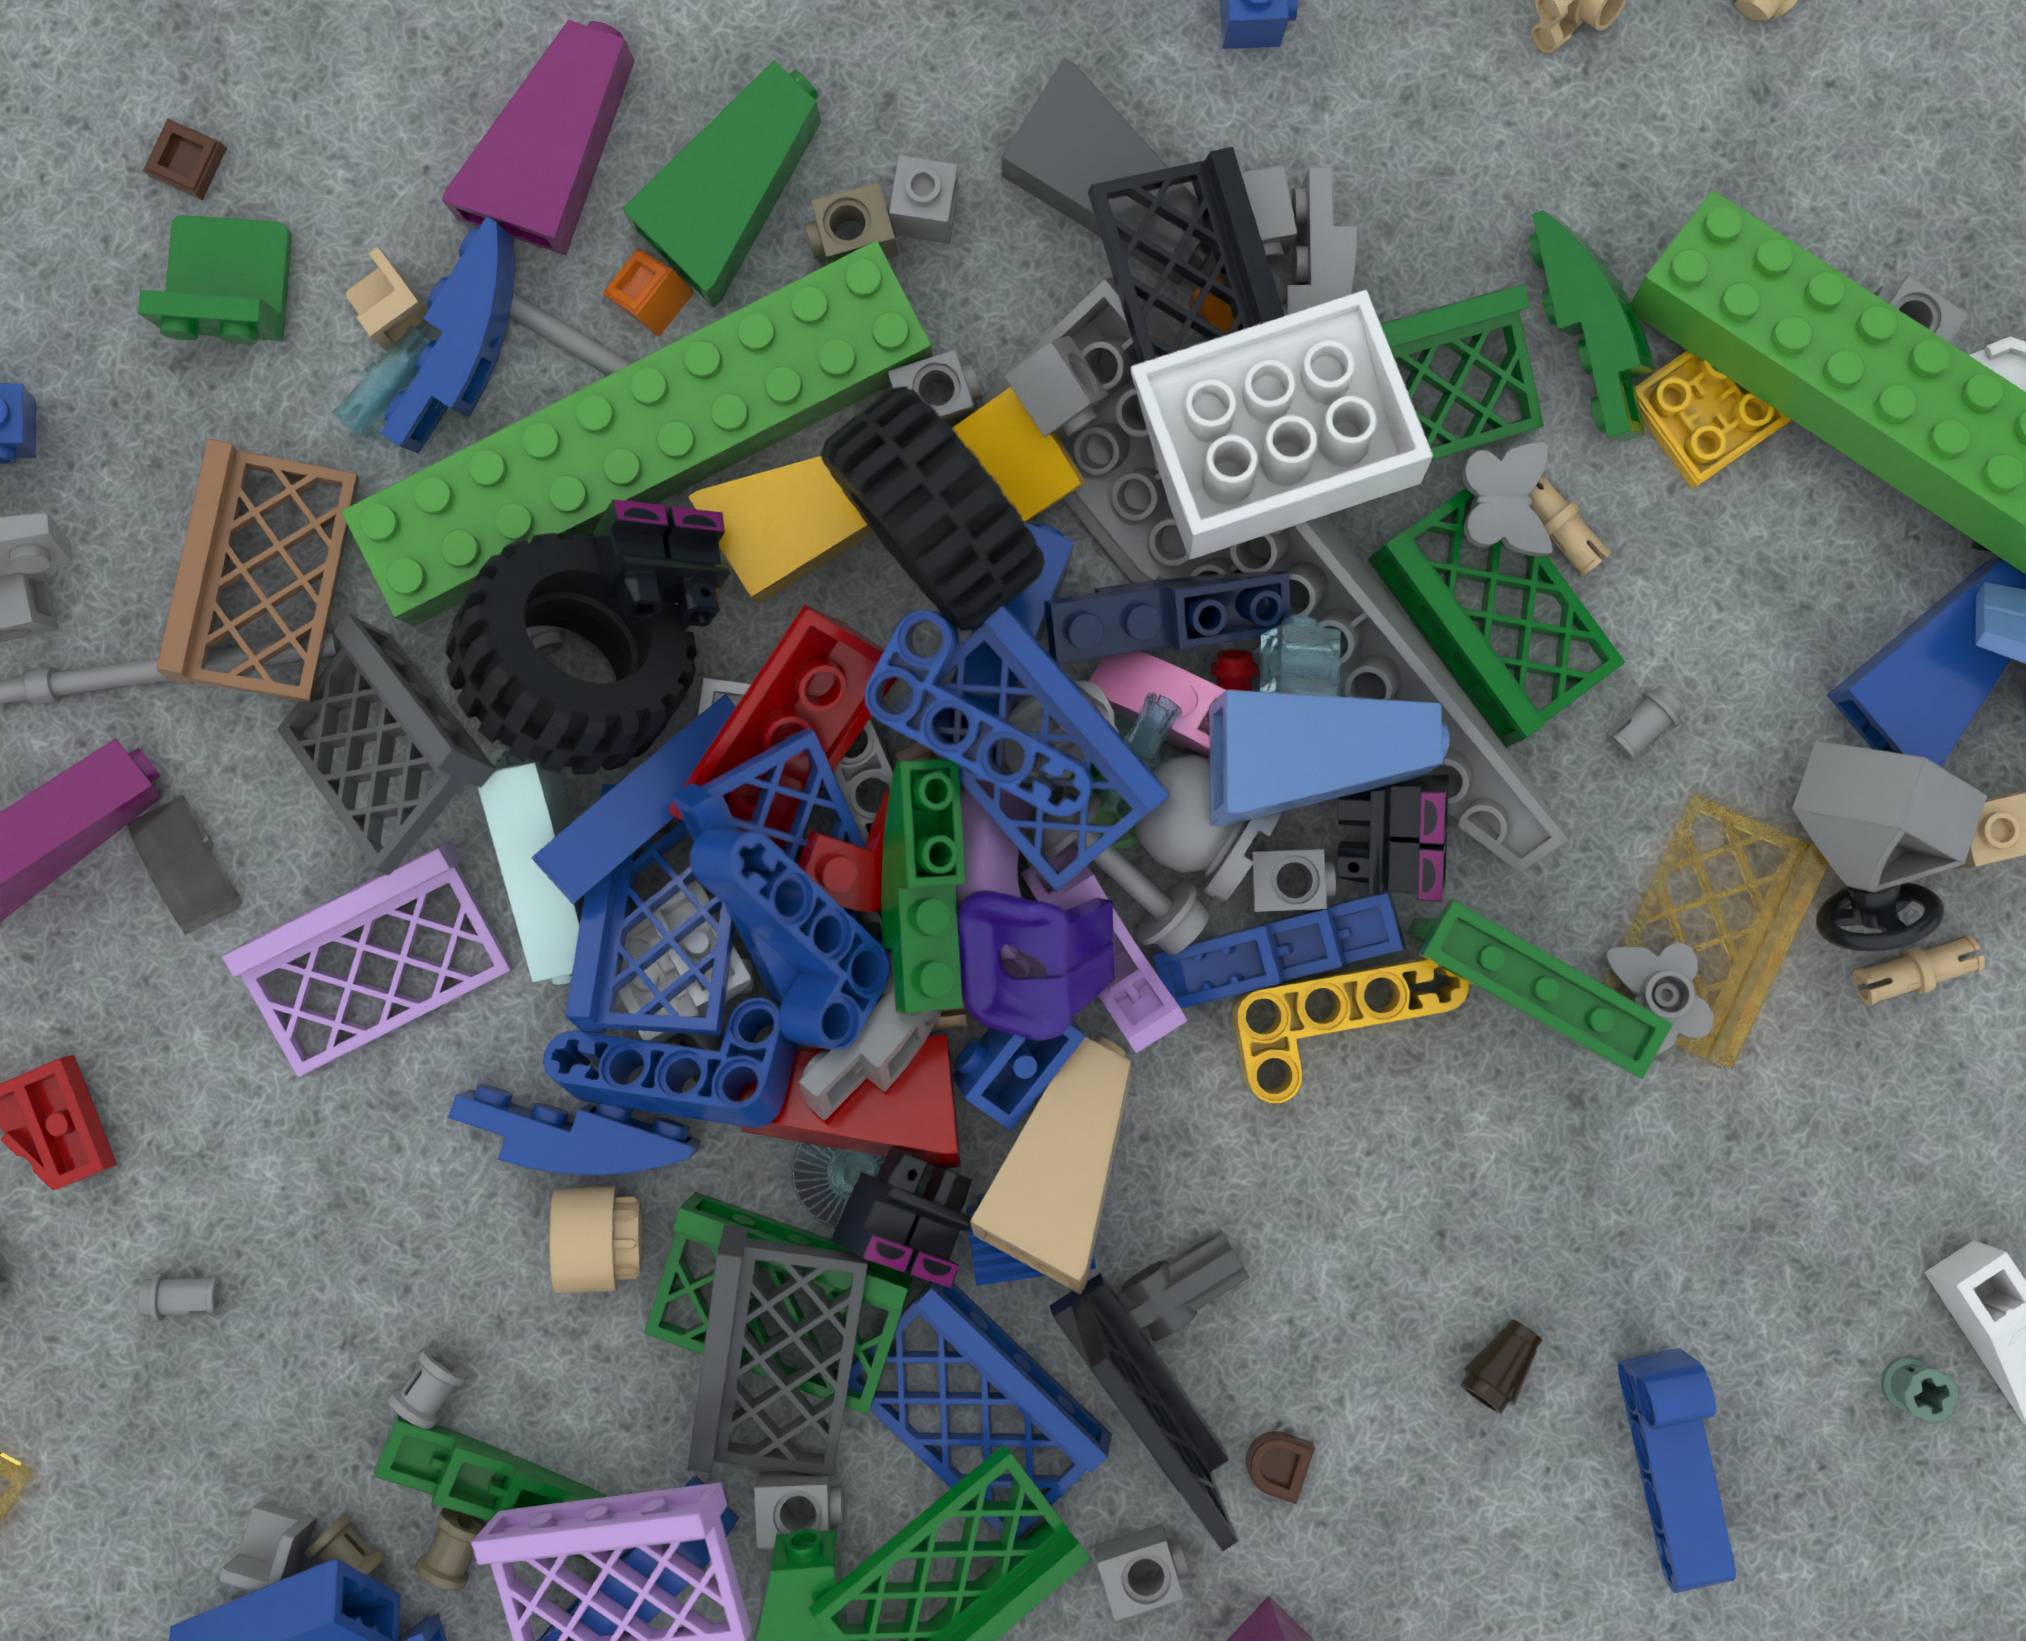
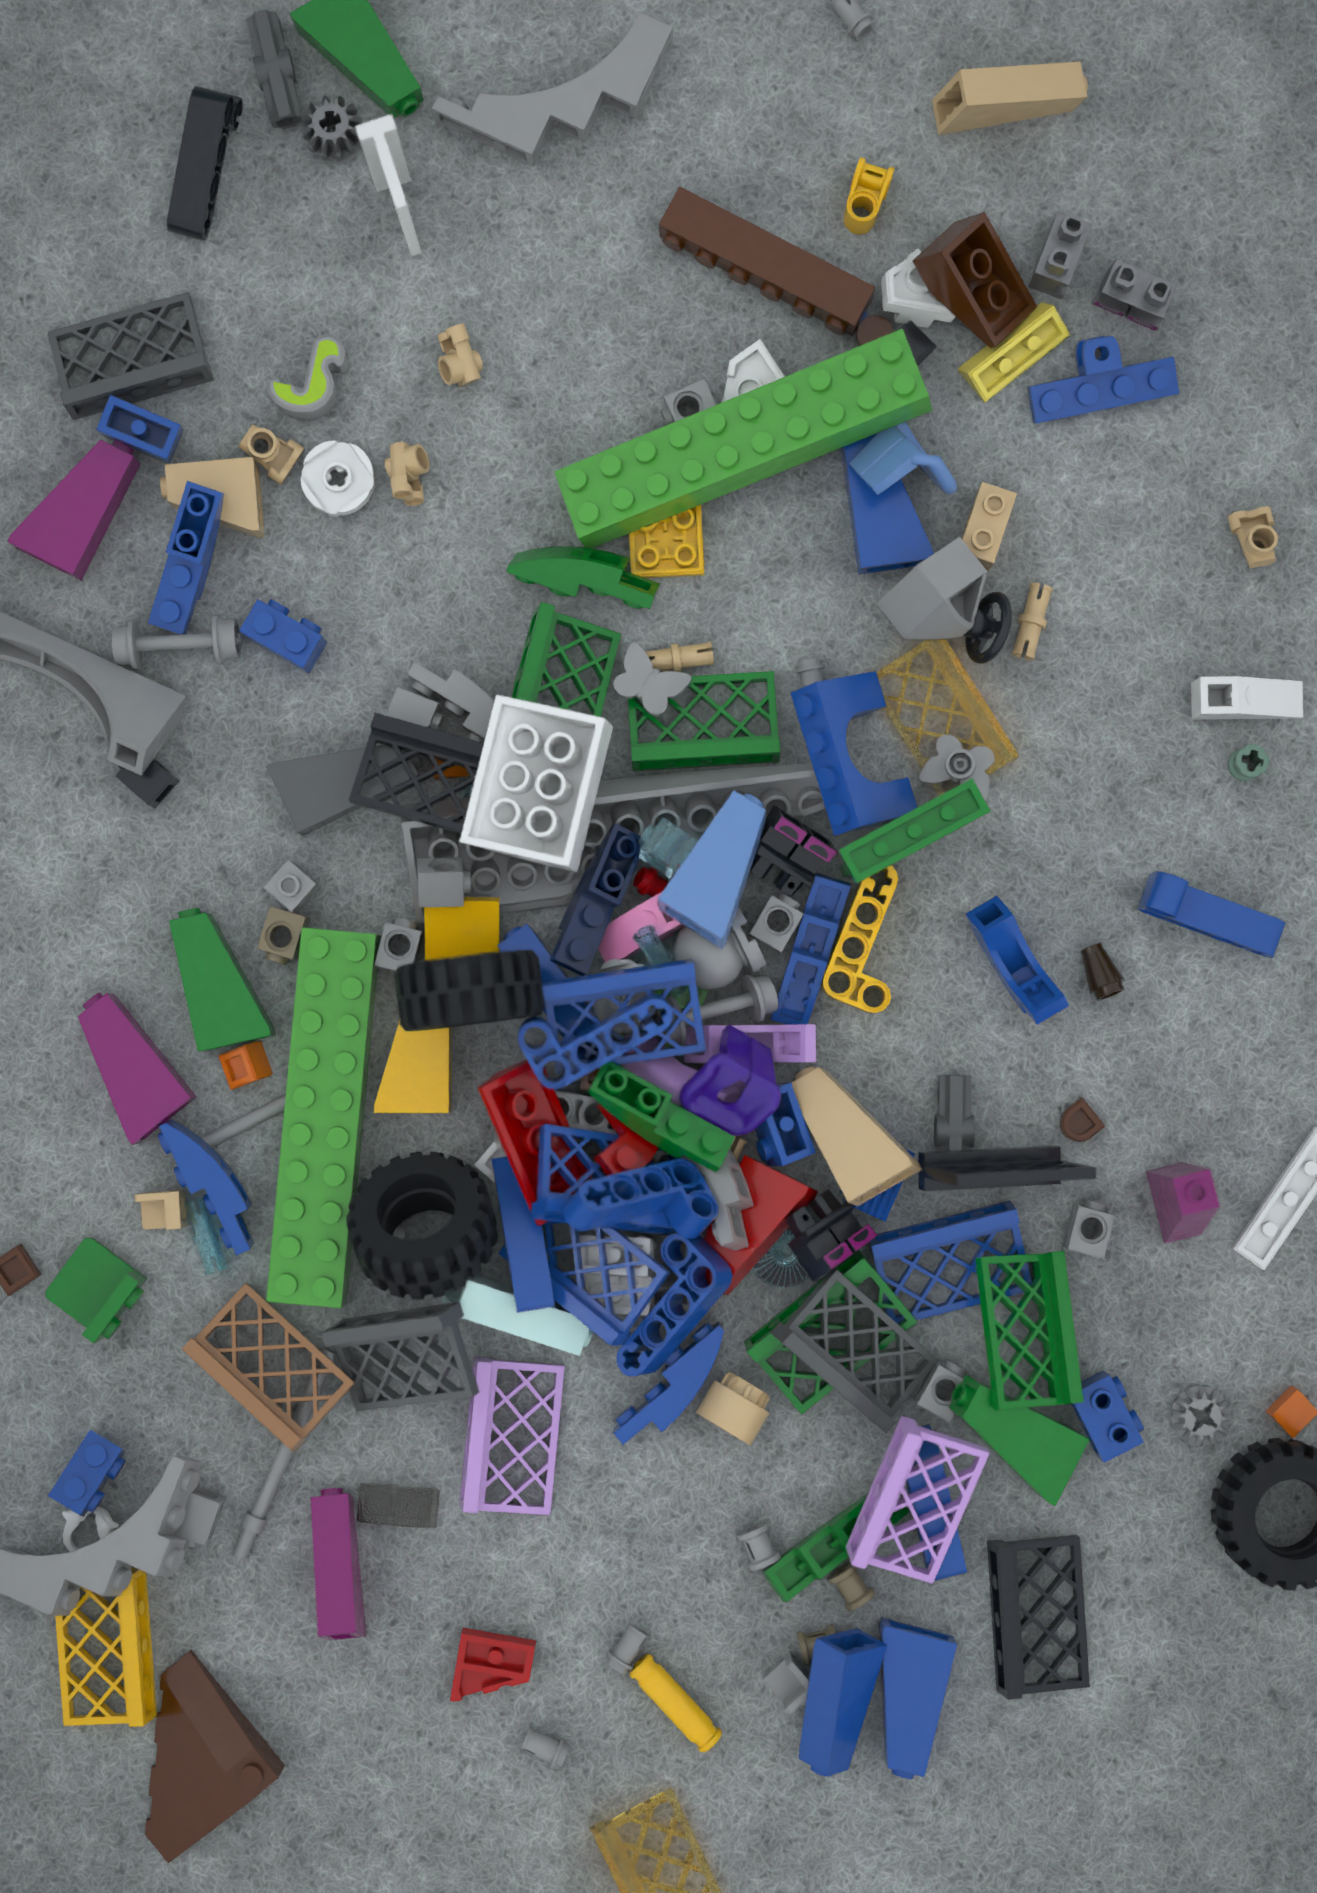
camera: 55 degrees left, 0 degrees up
(147, 1408) = (675, 1703): none -> yellow axle
(661, 558) = (400, 1147): black hips -> none
(1444, 1230) = (1014, 962): none -> blue arch
(1529, 872) = (848, 796): none -> blue arch

